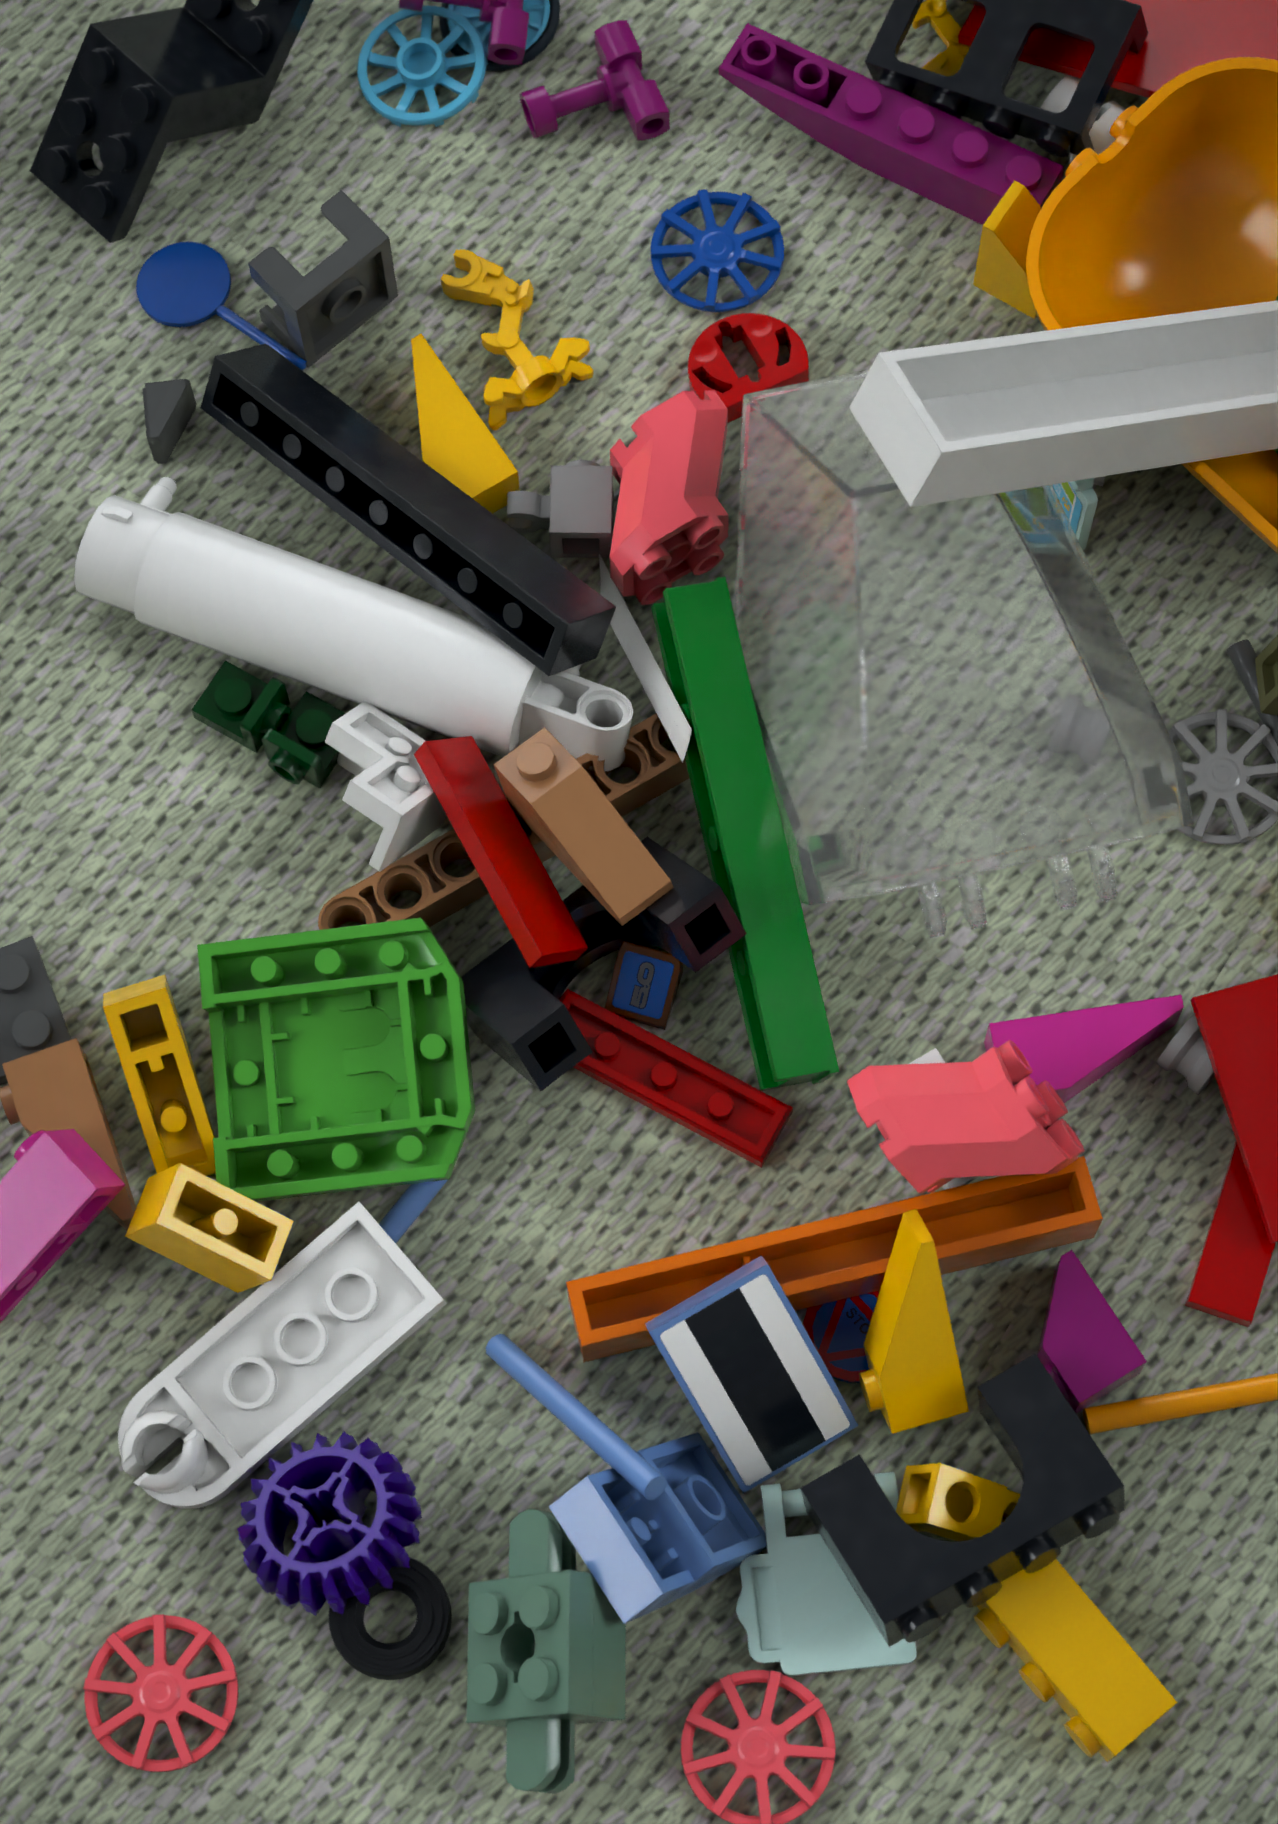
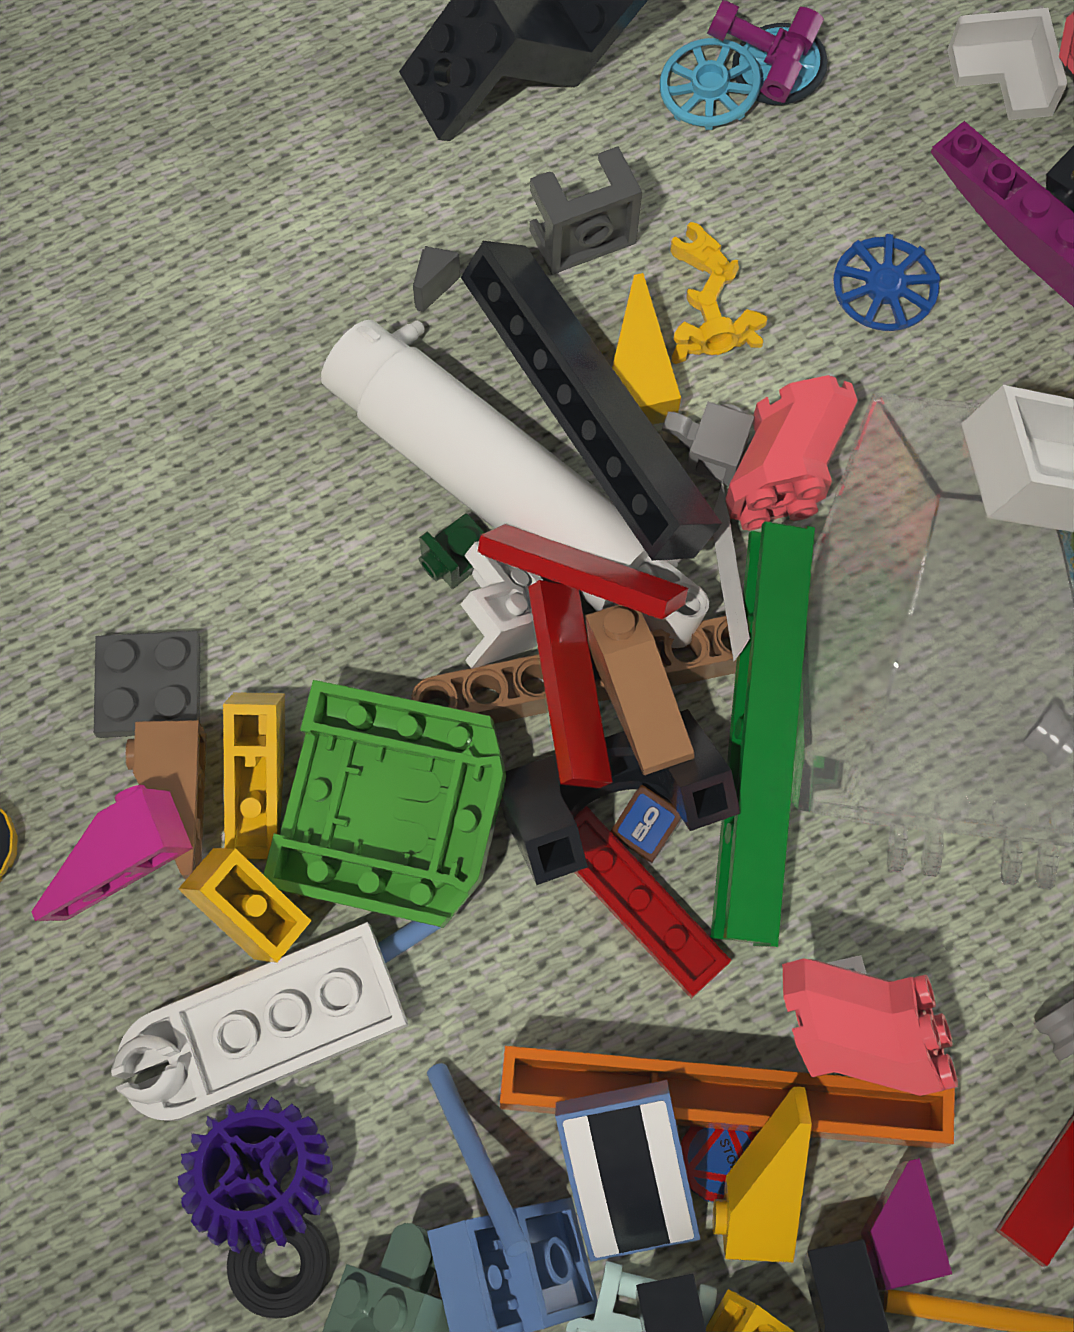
camera: 15 degrees right, 0 degrees up
(160, 1693) = (79, 1262): coral wheel -> none
(190, 285) = (486, 188): blue piece -> none
(243, 706) = (415, 508): dark green bracket -> none
(471, 714) = (583, 571): none -> red tile
(617, 84) = (851, 139): magenta bar -> none
(762, 339) = (899, 358): red piece -> none
(1085, 1044) = (978, 989): dark pink slope -> none

